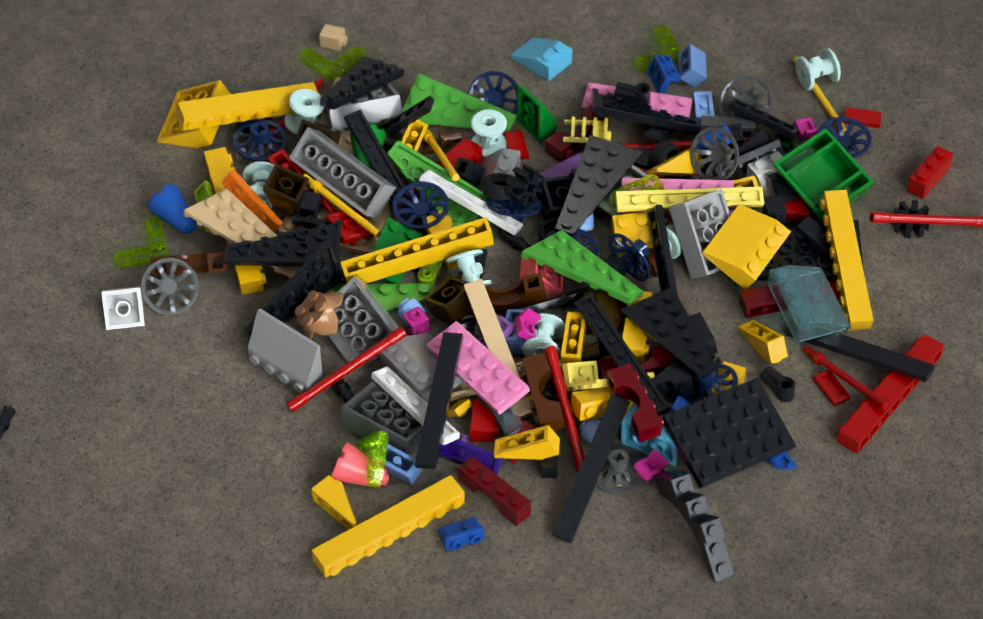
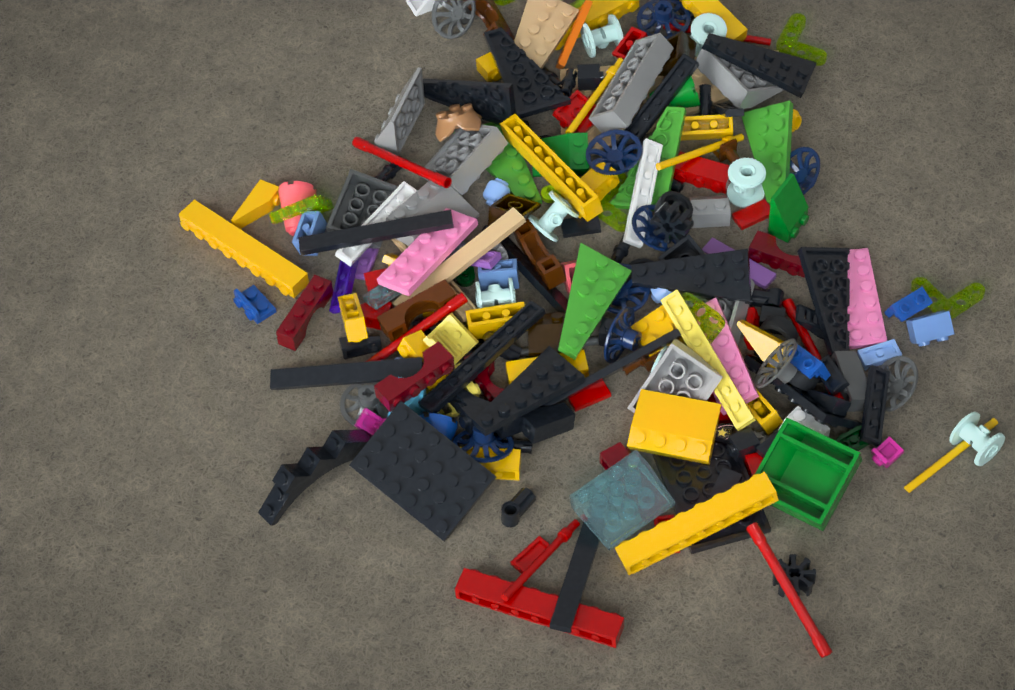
camera: 75 degrees right, 5 degrees up
(284, 189) = (594, 47): dark brown slope -> none
(332, 37) = (828, 30): tan brick -> none
(417, 321) = (480, 198): dark pink bracket -> none
(469, 170) = (689, 182): black brick -> none
(525, 323) = (492, 274): dark pink bracket -> none
(543, 57) = (885, 201): medium azure slope -> none
(600, 129) = (782, 272): light yellow plate -> none
(639, 93) = (858, 284): black piece -> none
(765, 341) = (567, 481): yellow slope -> none
(782, 461) = (422, 535): blue tile -> none
(845, 139) = (881, 489): dark blue wheel -> none
(867, 117) = (935, 503): red tile -> none
(930, 172) = (872, 580): red brick -> none

